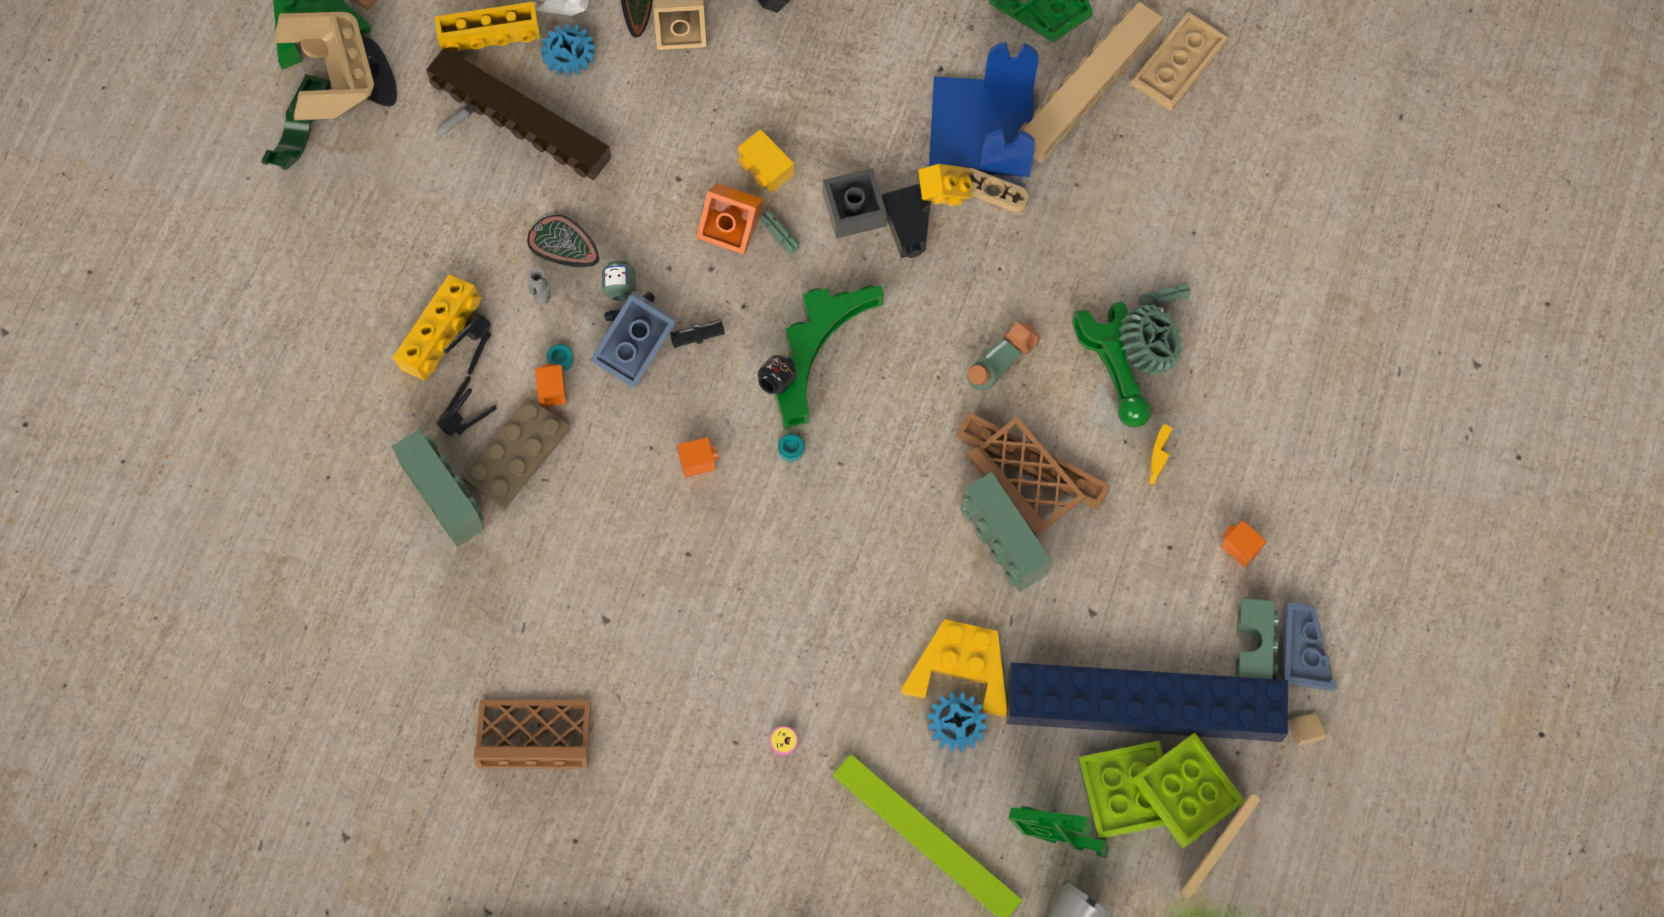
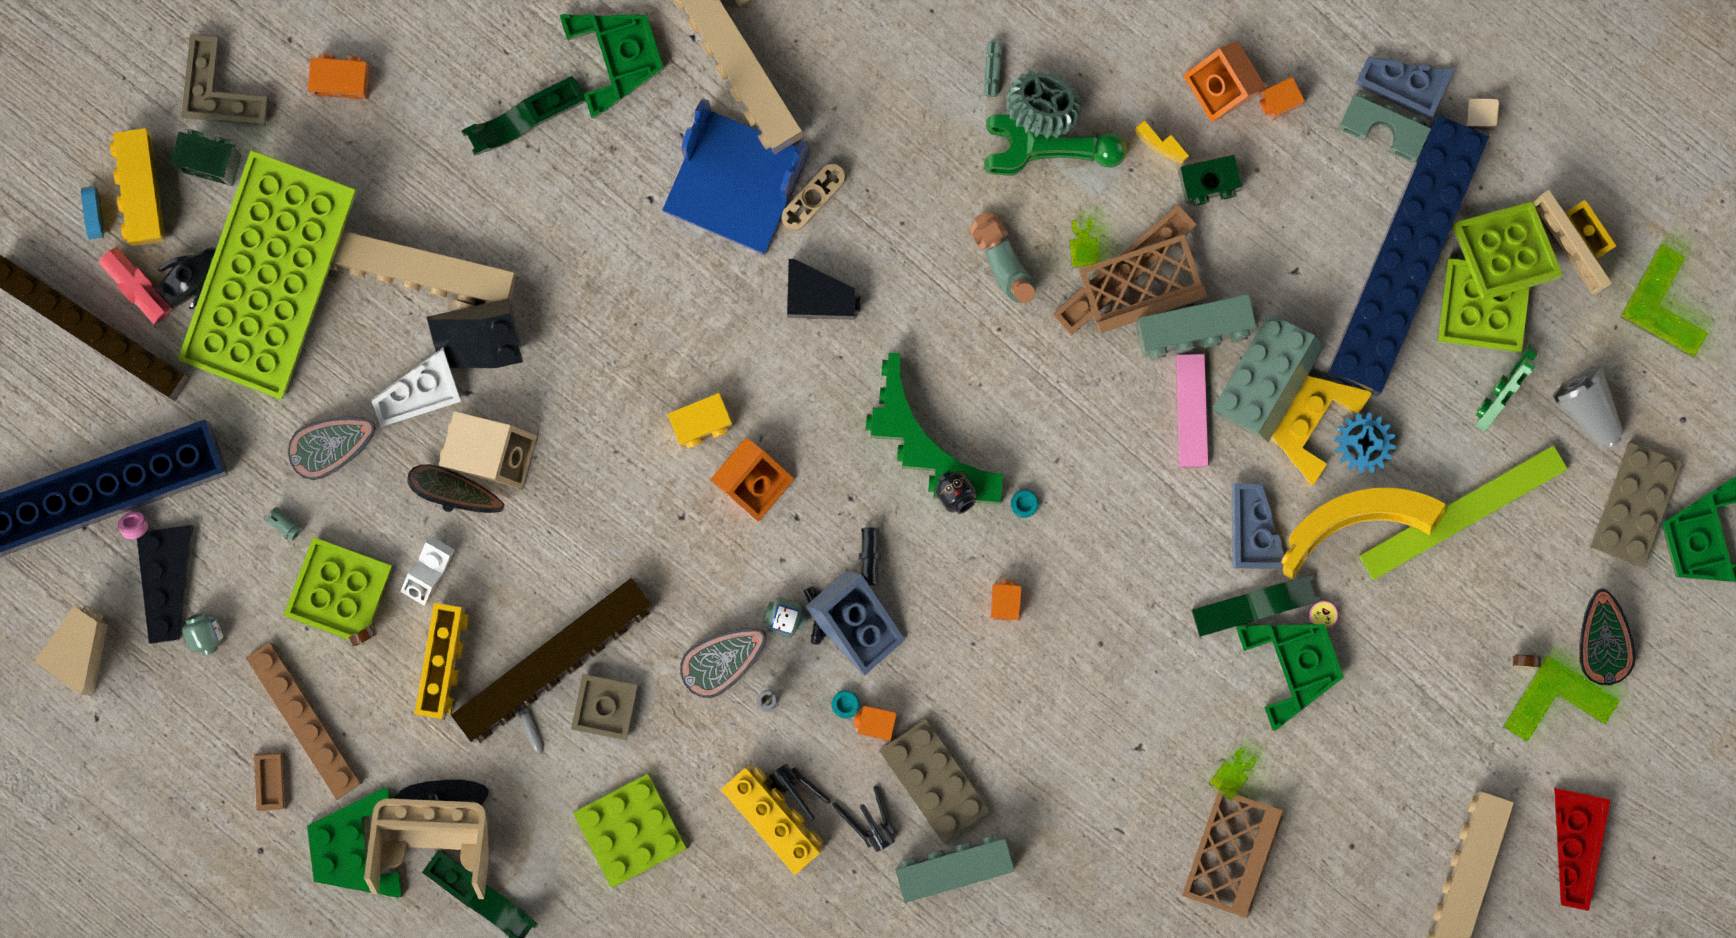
camera: 65 degrees left, 15 degrees up
(392, 222) = (629, 830): none -> lime plate
(492, 167) = (604, 707): none -> dark tan plate
(576, 42) = (494, 597): dark azure gear -> none
(602, 705) = (1231, 778): none -> clear neon green plate
(734, 737) = (1306, 662): none -> green wing
(771, 676) = (1254, 606): none -> dark green piece
(779, 231) = (783, 433): sand green axle -> none
(839, 651) = (1253, 531): none -> sand blue wing
(854, 203) = (784, 346): dark grey brick -> none
(892, 733) = (1357, 507): none -> yellow arch
(929, 561) = (1191, 410): none -> bright pink tile
(945, 184) = (801, 246): yellow brick -> none
(984, 612) = (1268, 377): none -> sand green brick
(1039, 420) = (1083, 249): none -> clear neon green plate
(1143, 491) = (1222, 168): none -> dark green brick
(1236, 859) = (1590, 229): none -> yellow brick
(1238, 489) = (1224, 81): none -> orange slope

